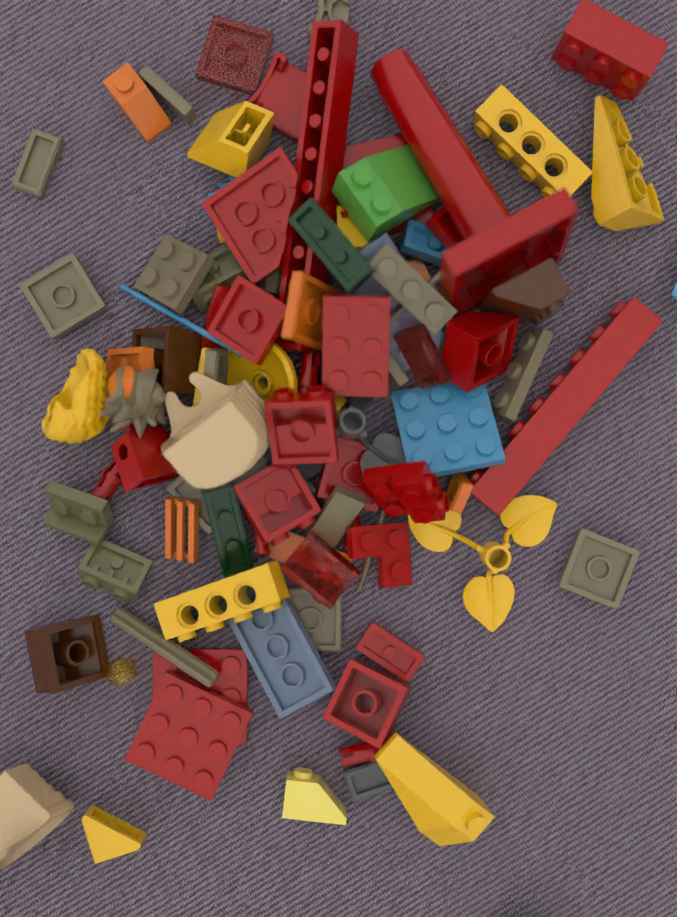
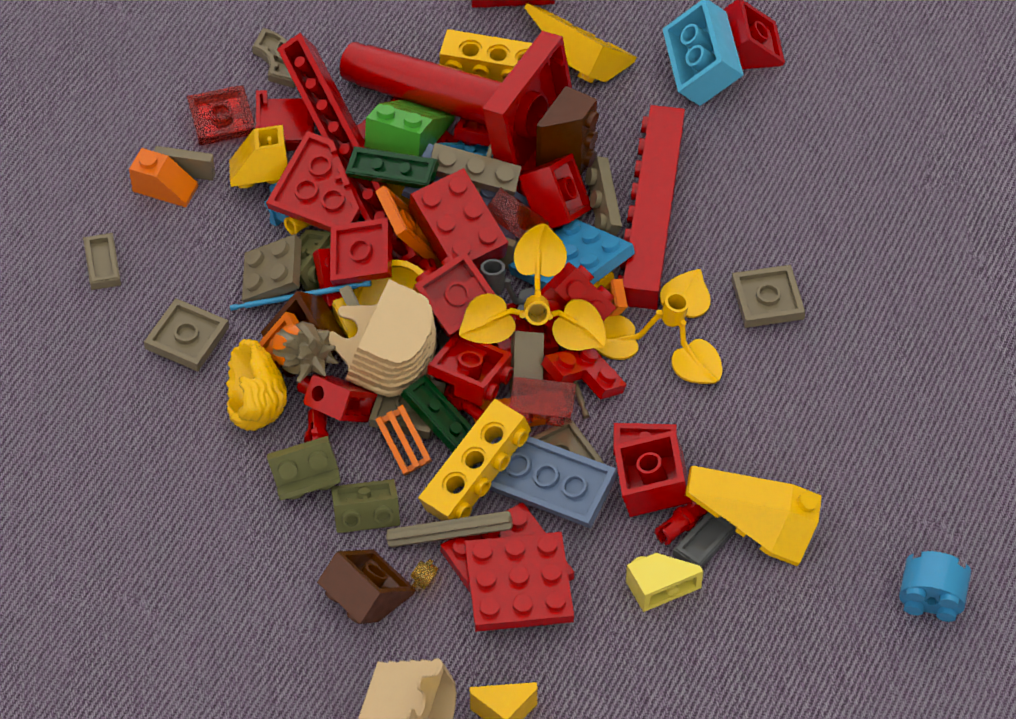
camera: 30 degrees left, 35 degrees down
(380, 464) = (545, 254): none -> yellow plant

